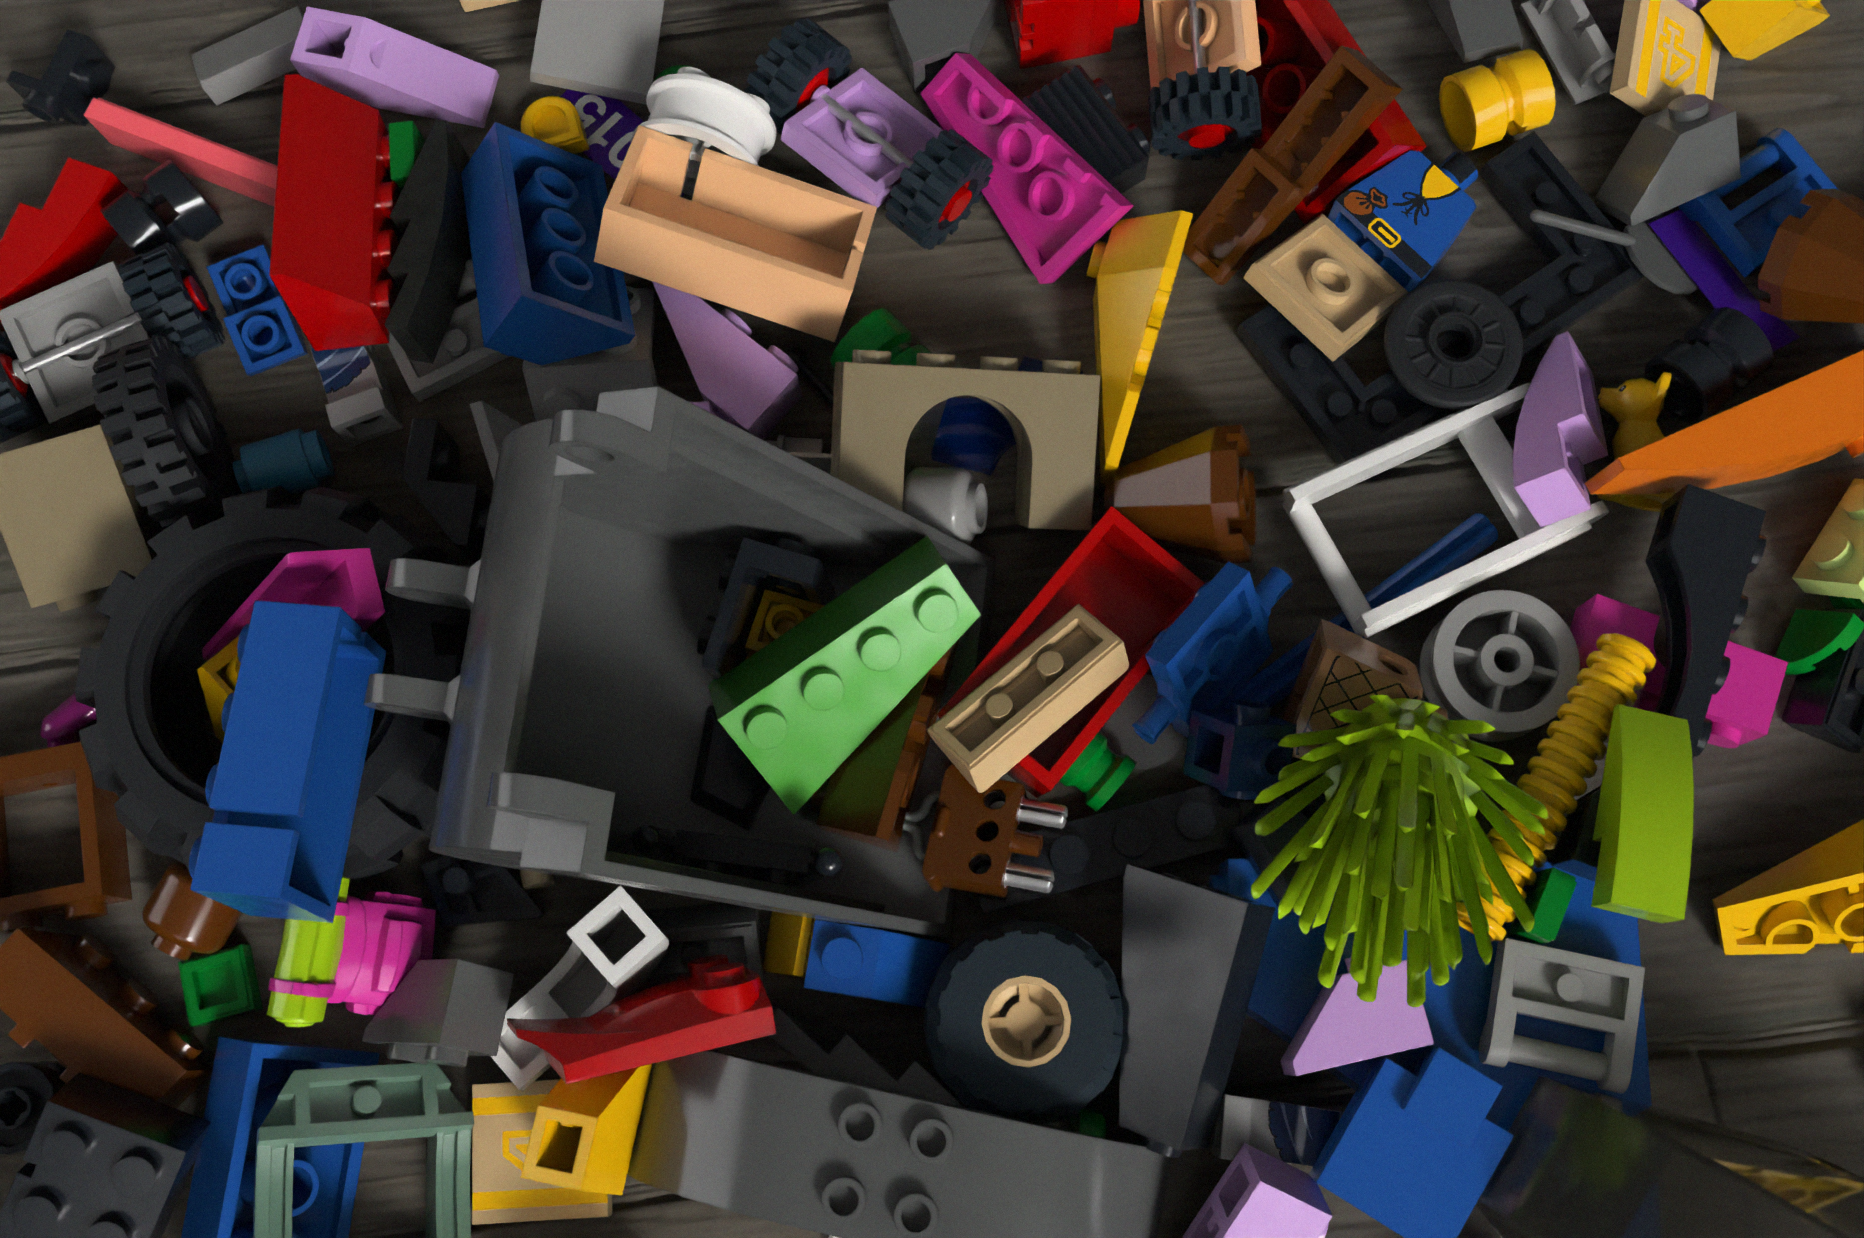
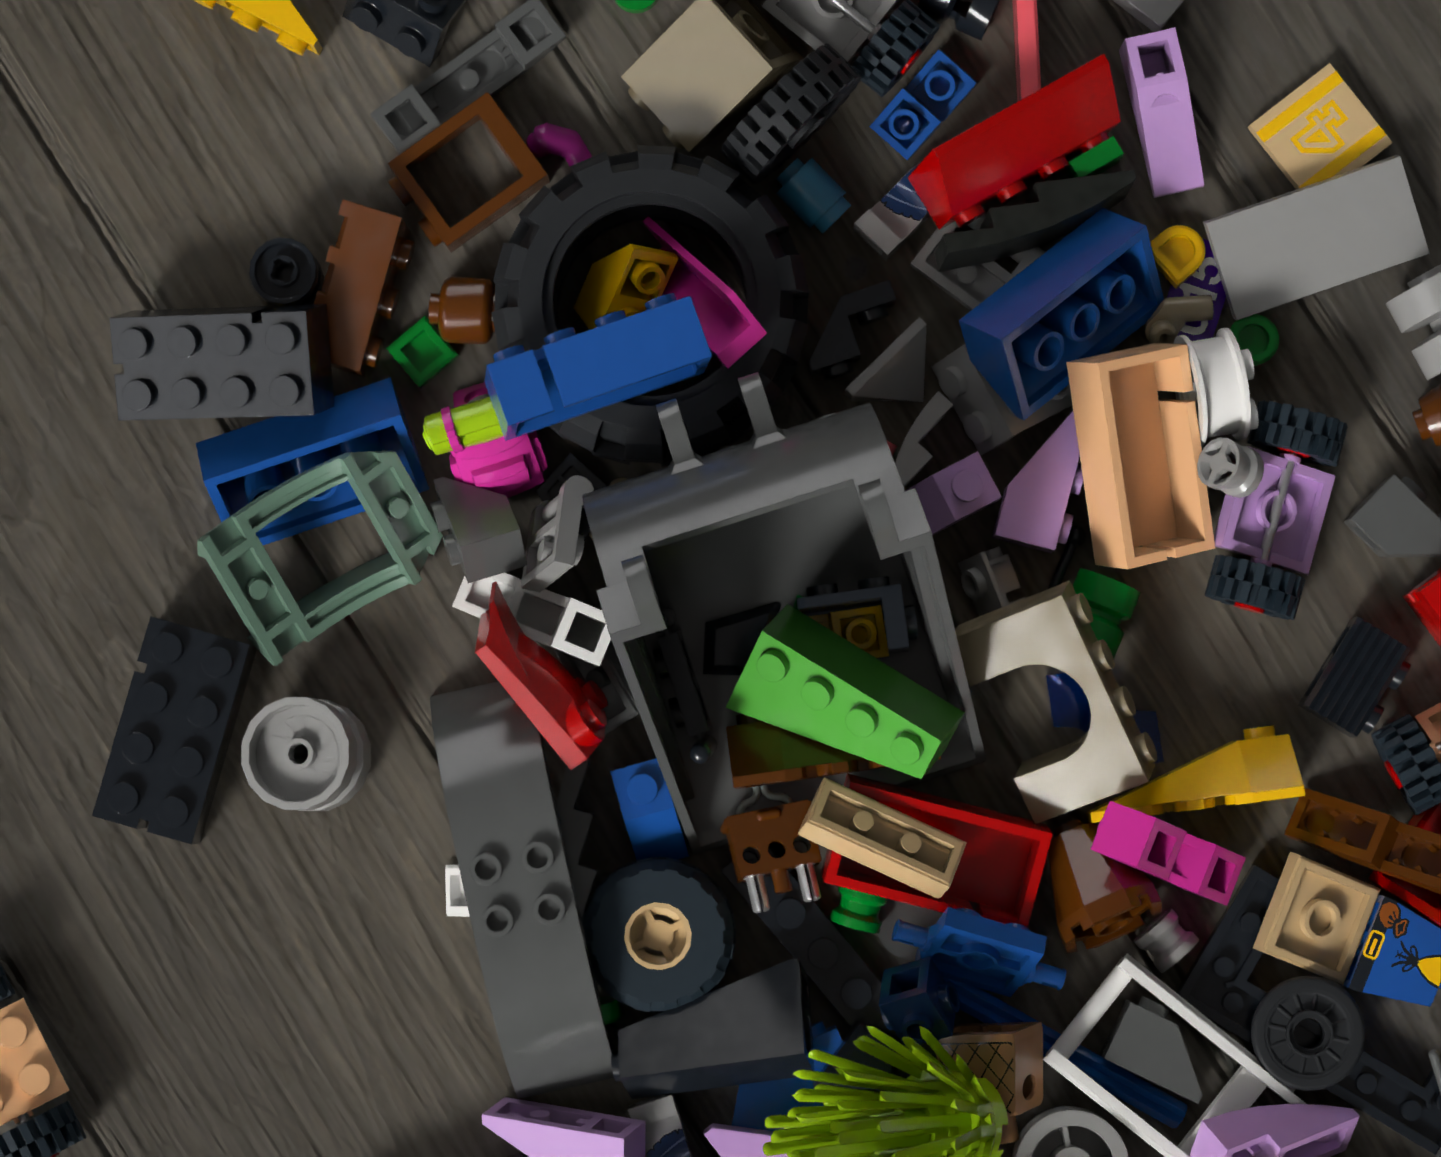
camera: 65 degrees right, 10 degrees up
(492, 921) = (554, 537): none -> light grey plate
(499, 1149) = (417, 637): tan tile -> none
(587, 1132) = (446, 670): yellow slope -> none
(613, 145) = (1174, 313): none -> dark tan arm
(779, 143) = (1227, 456): none -> light grey wheel
(788, 944) = (631, 745): yellow slope -> none
(946, 501) = (1007, 706): light grey head -> none
(1038, 185) = (1298, 657): dark pink wing -> none
(1188, 395) = (1167, 853): none -> dark pink arch
(1283, 453) = (1166, 940): none -> light grey wheel
(1398, 519) = (1152, 1048): none -> dark grey slope

